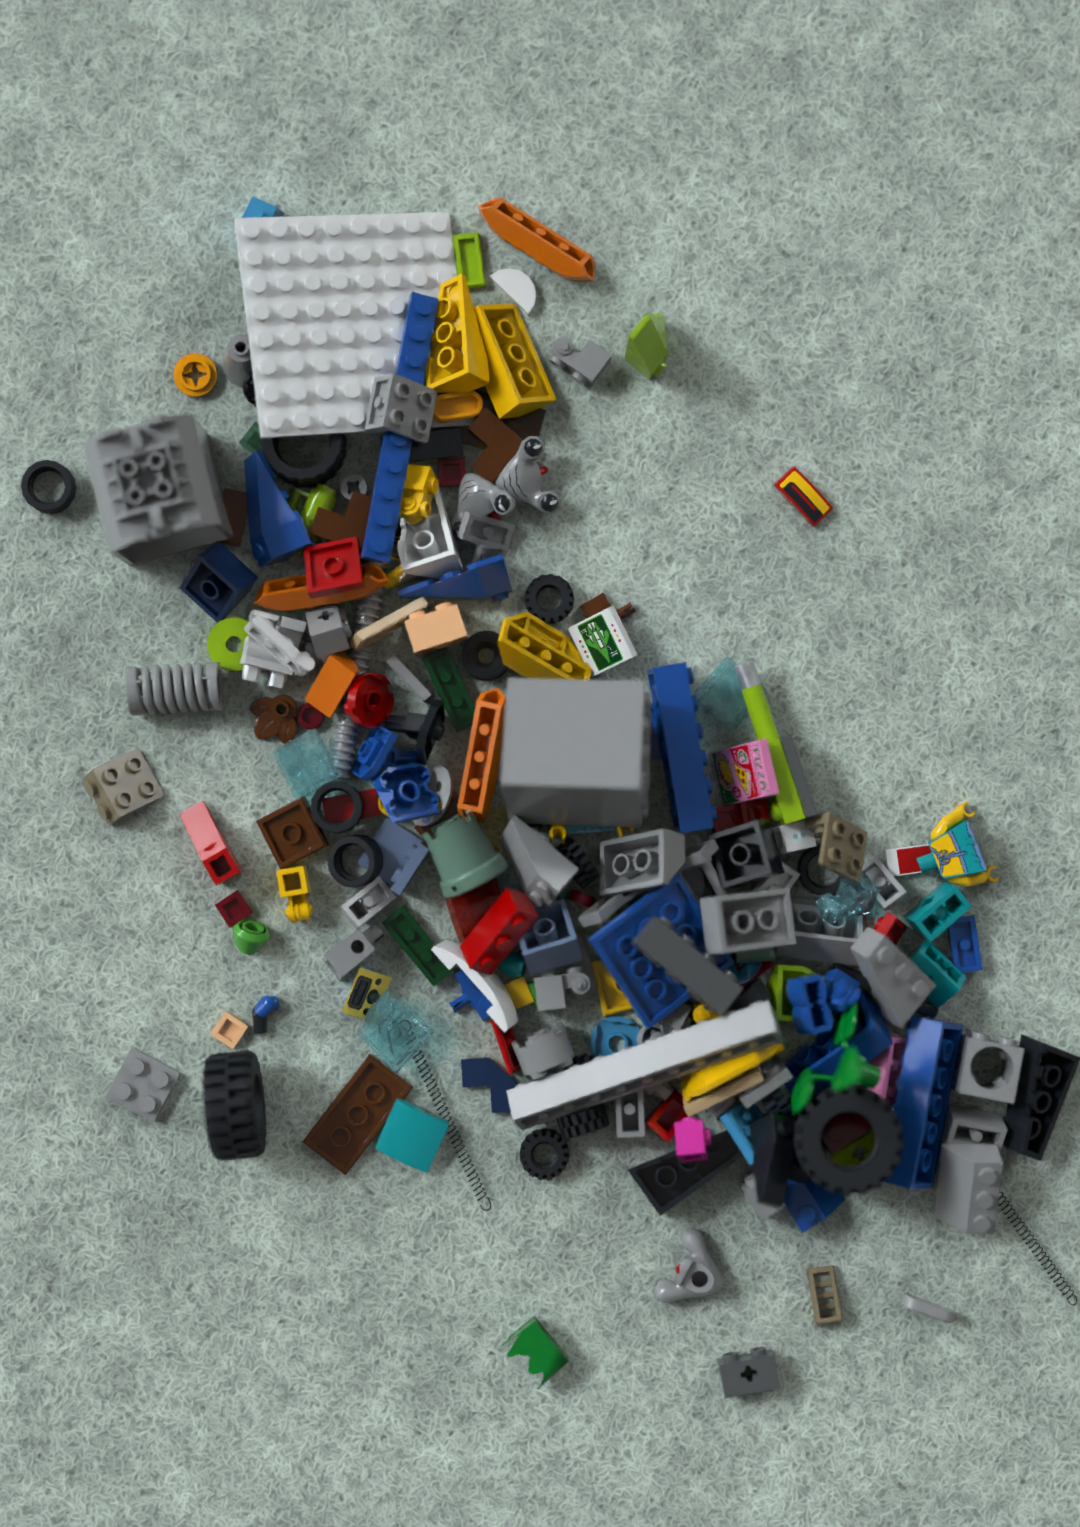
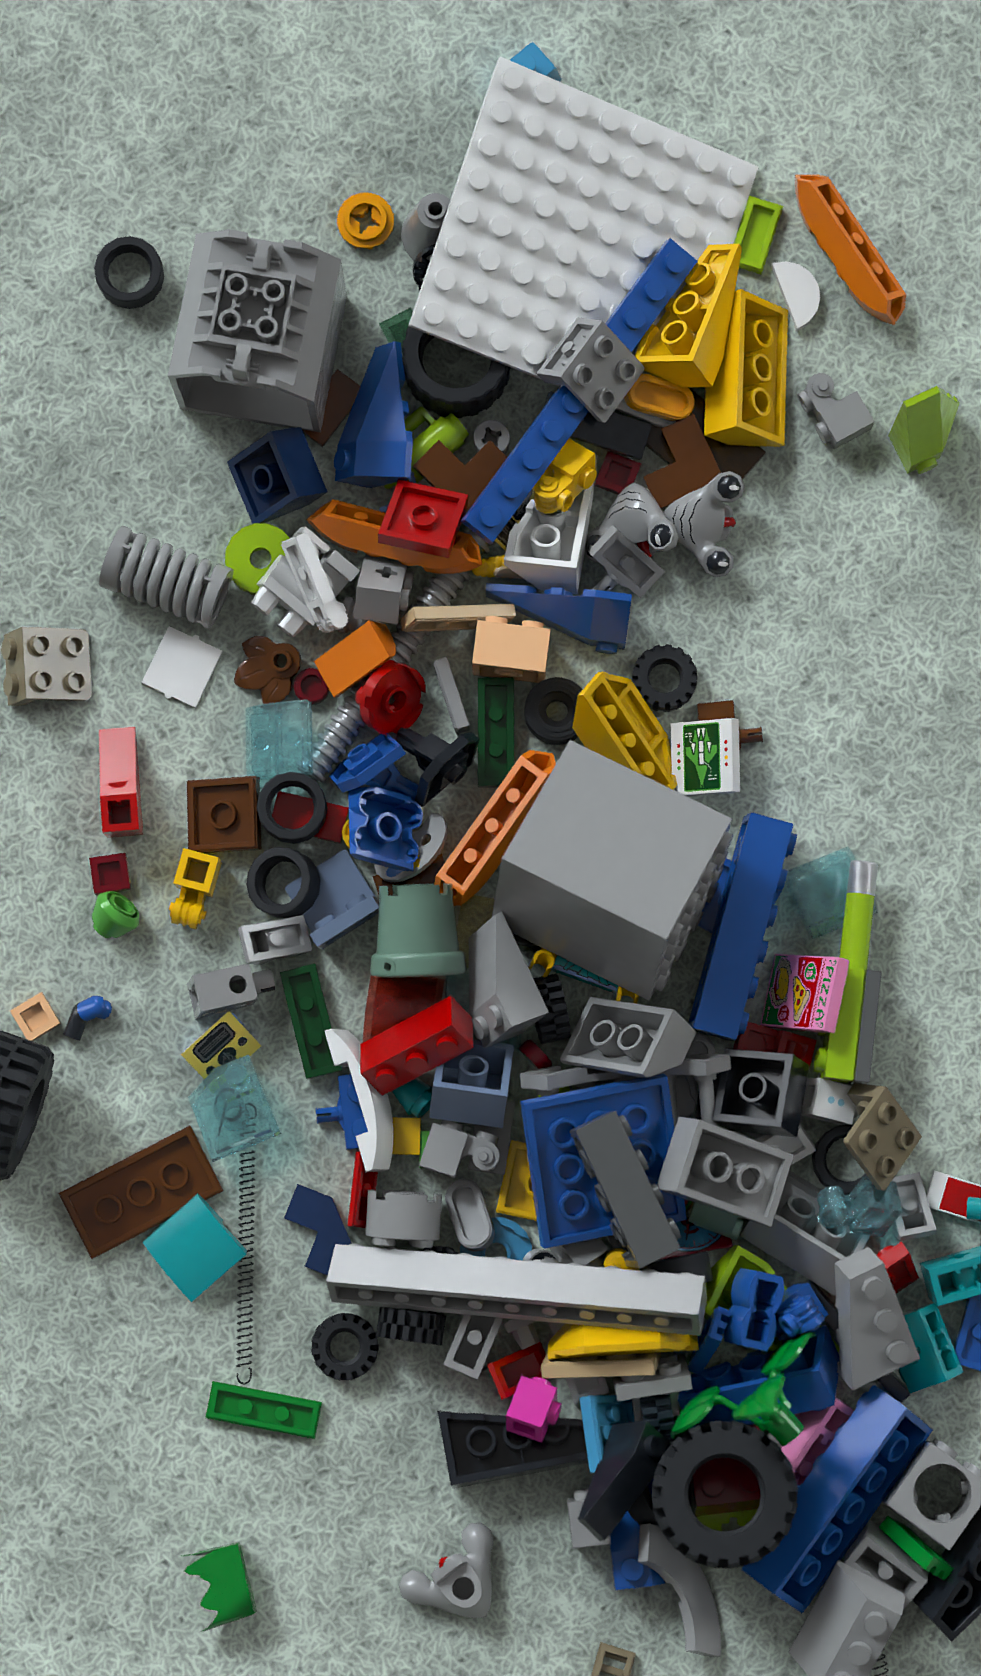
camera: 30 degrees right, 5 degrees down
(215, 743) = (182, 667): none -> white piece
(509, 1221) = (263, 1410): none -> green tile
(587, 1026) = (470, 1215): none -> light grey tile
(790, 1037) = (709, 1340): none -> blue tile
(856, 1210) = (690, 1583): none -> light grey tile
(989, 1110) = (916, 1547): none -> green tile

